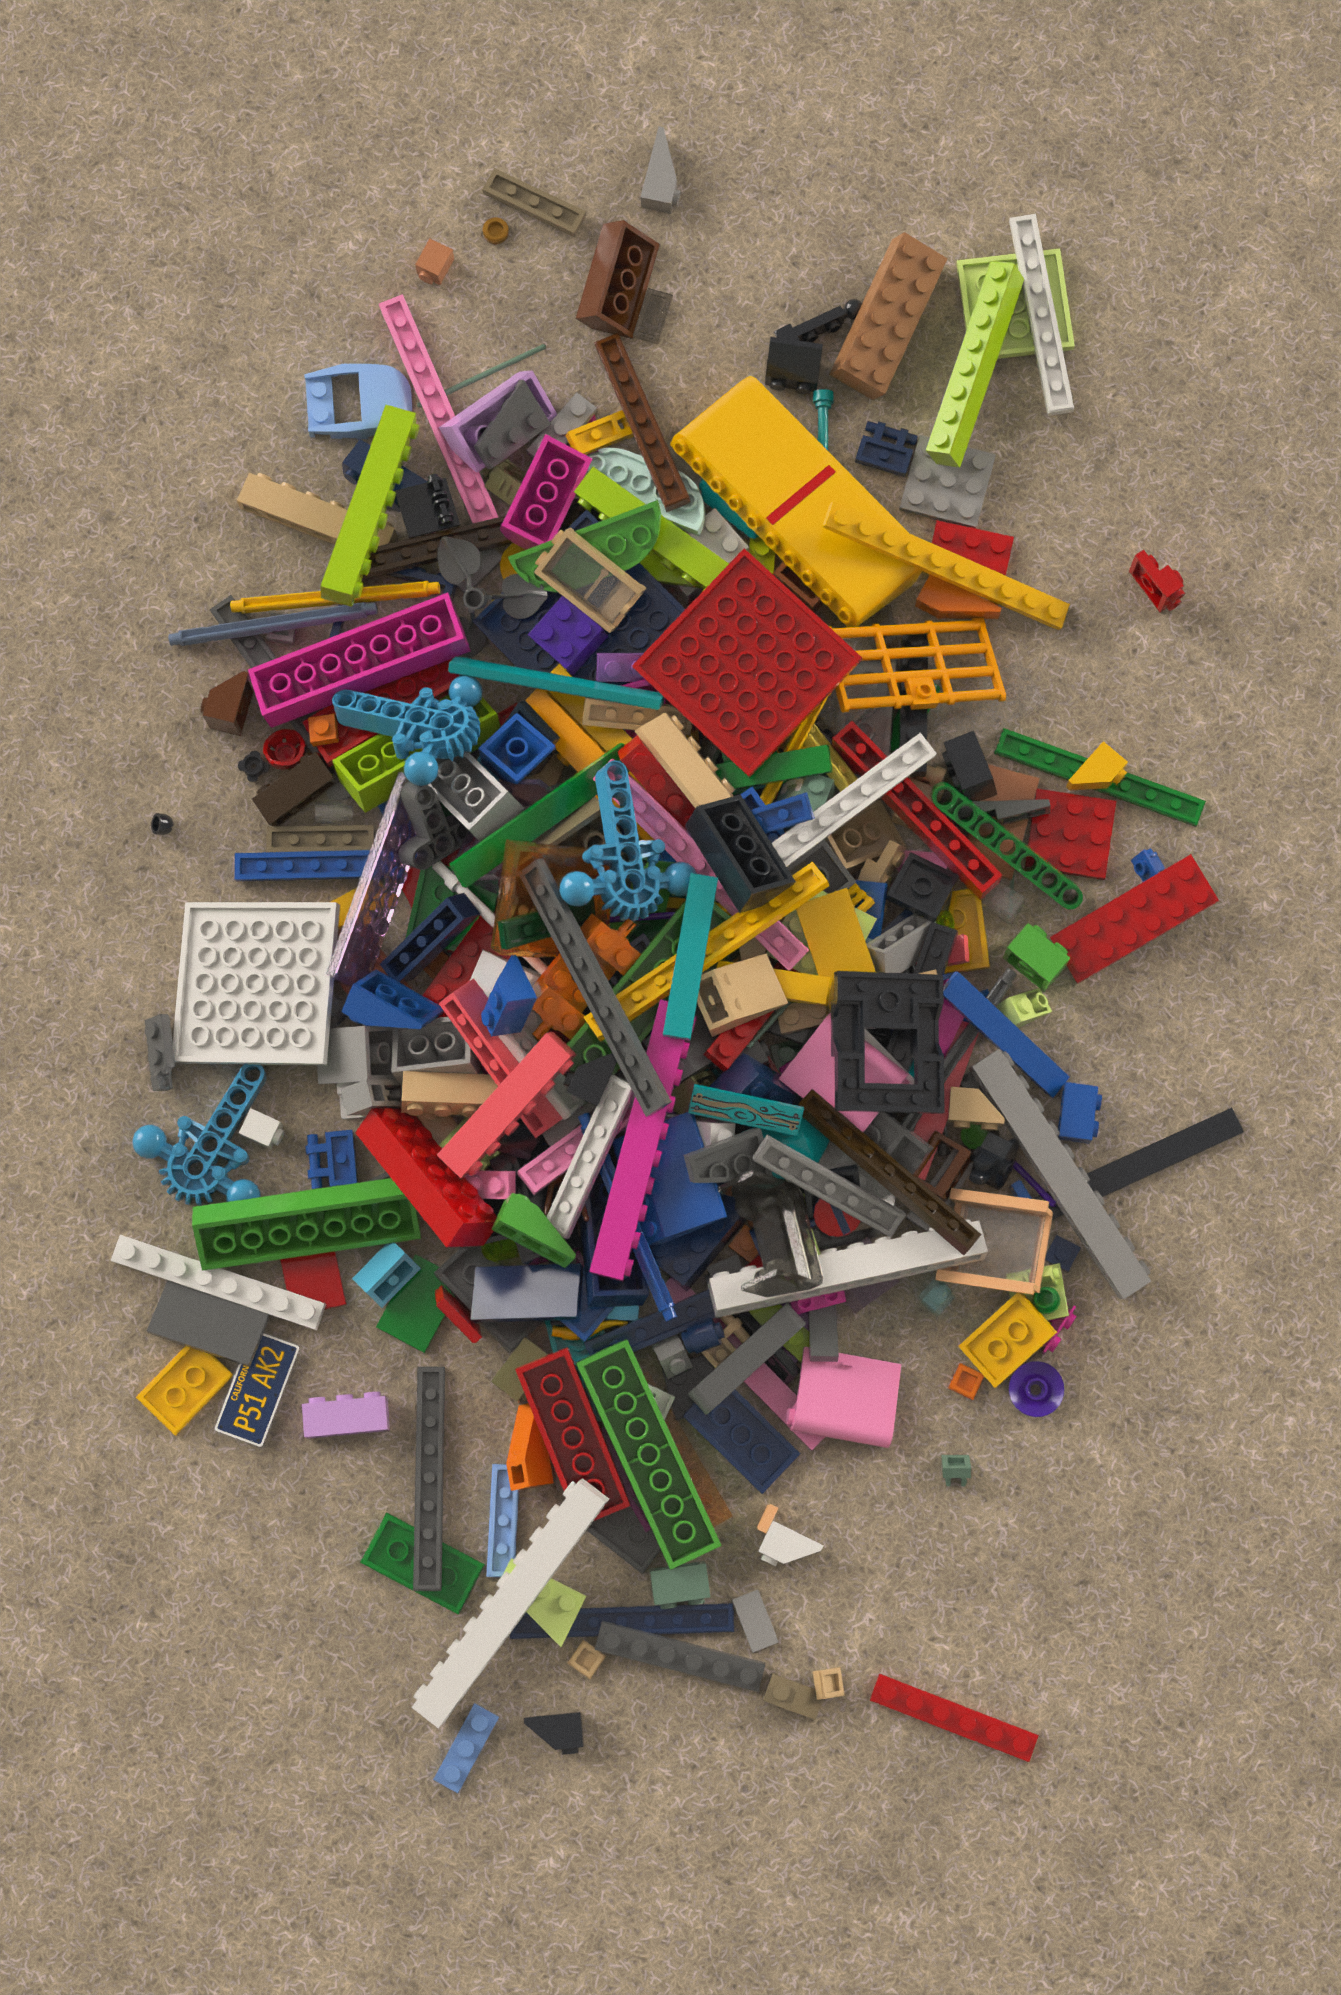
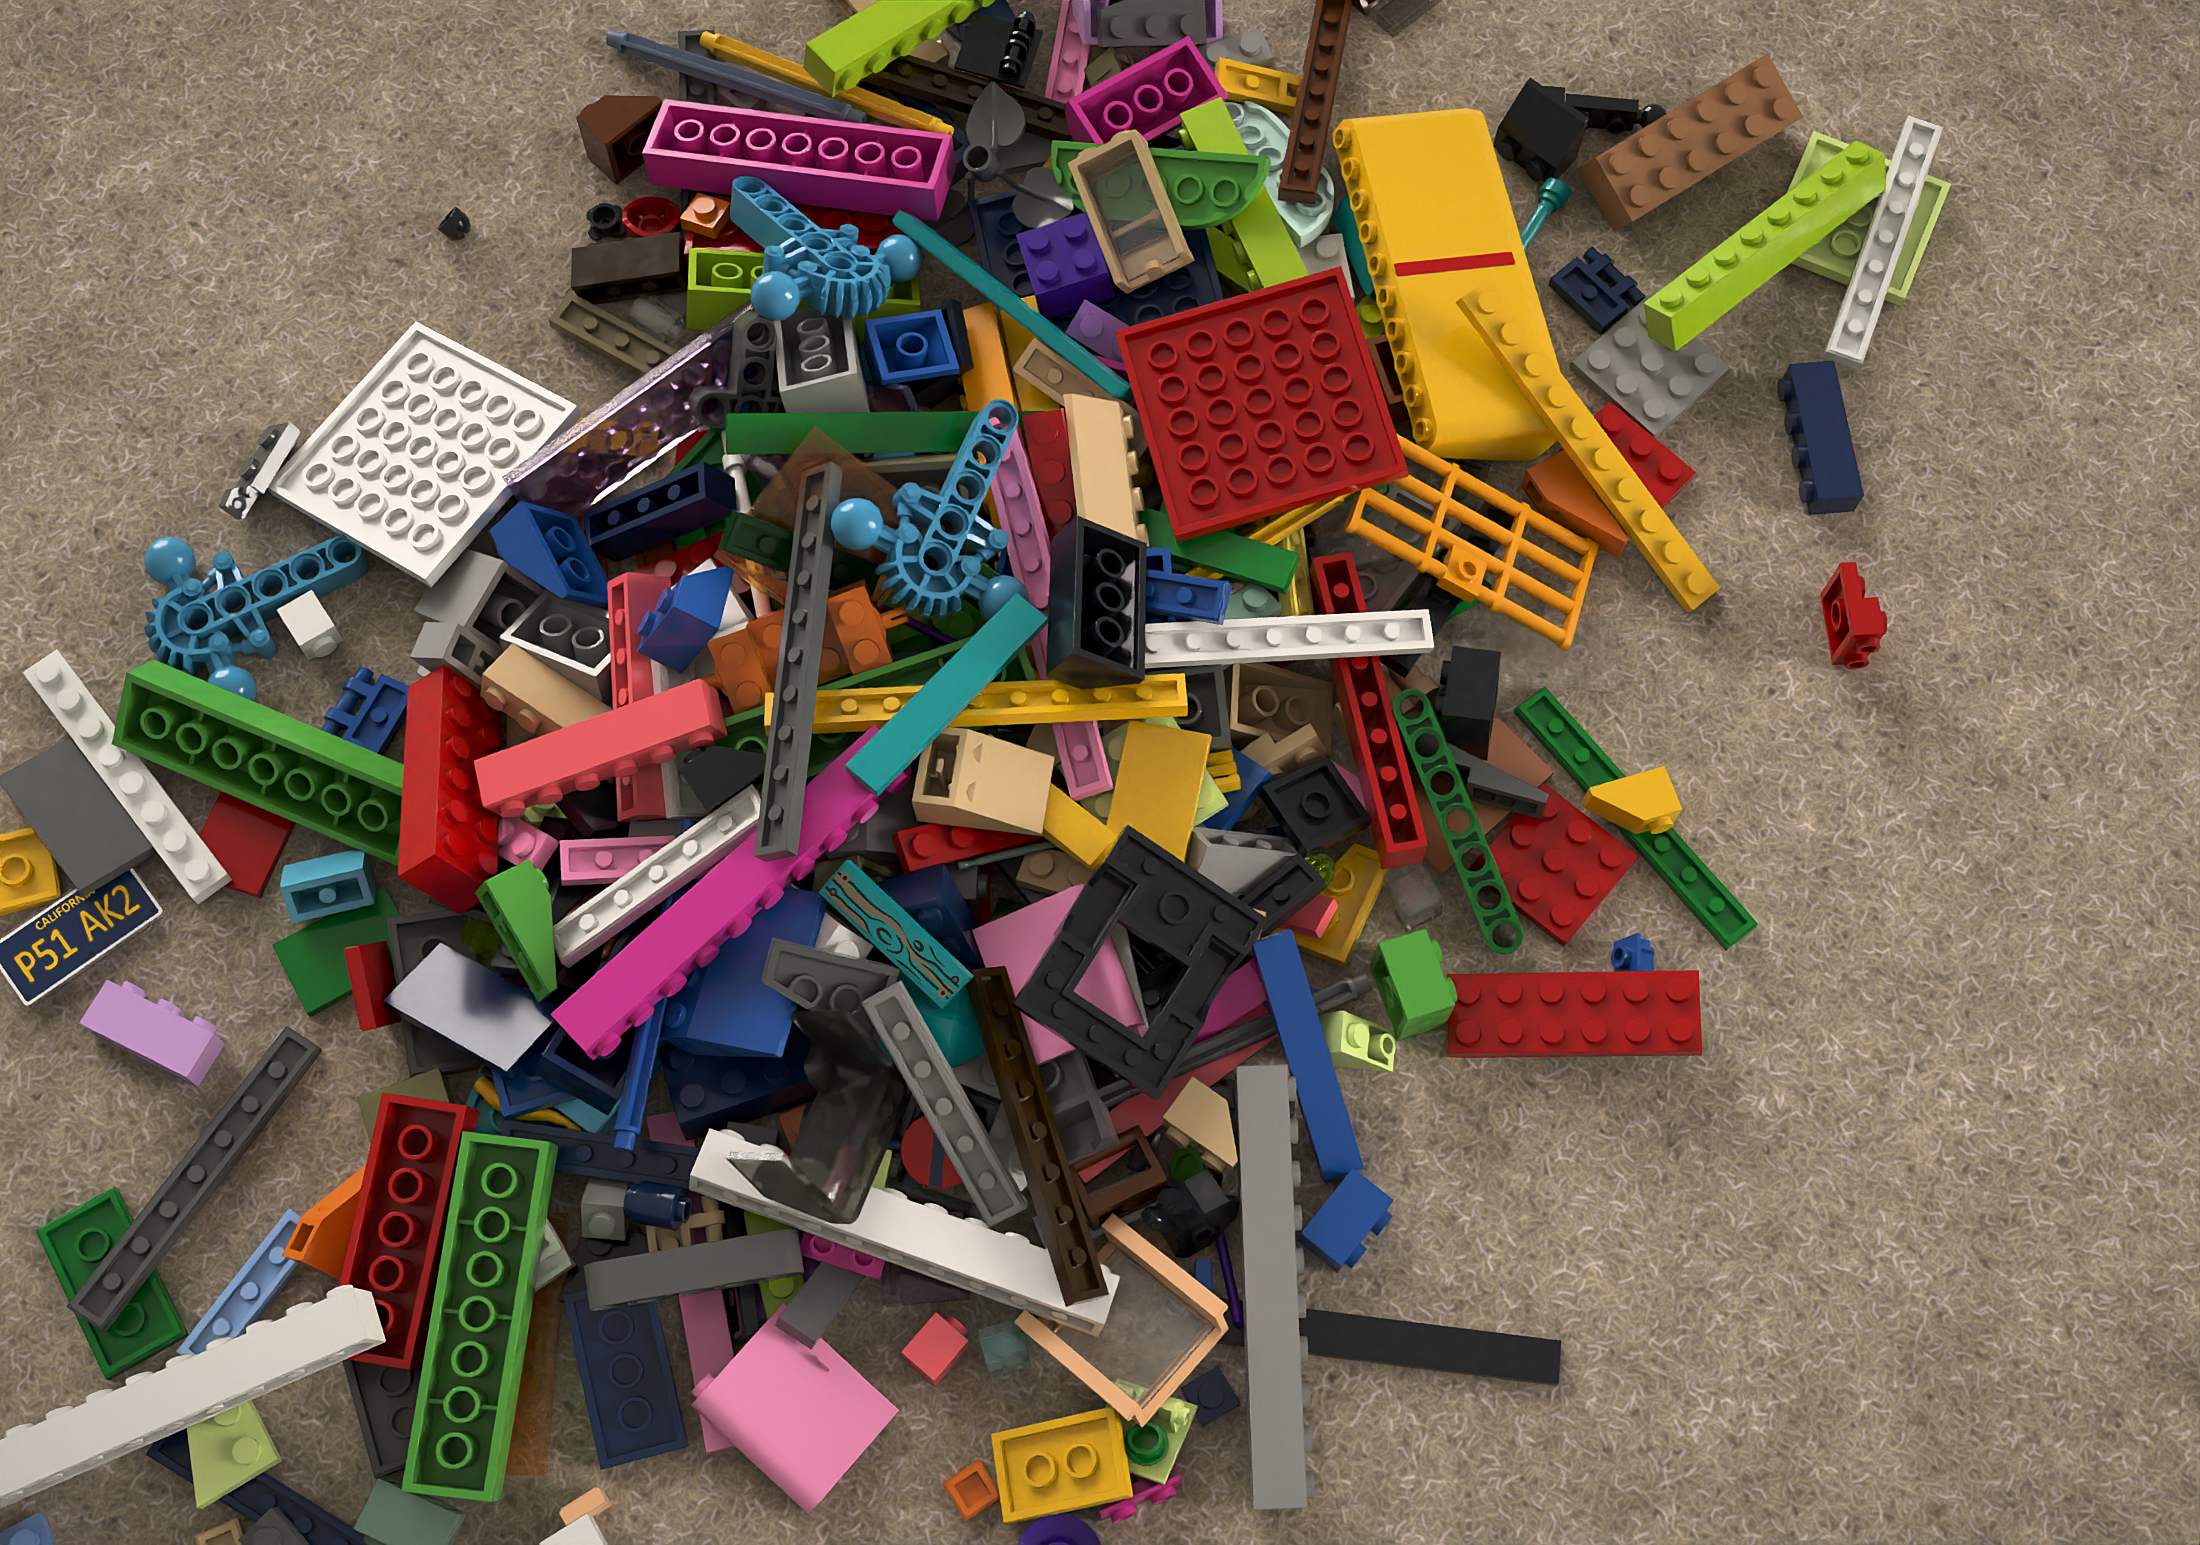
camera: 25 degrees right, 10 degrees down
(300, 865) = (565, 350): blue plate -> none
(900, 1318) = (937, 1347): none -> coral brick
(1075, 470) = (1820, 438): none -> dark blue brick

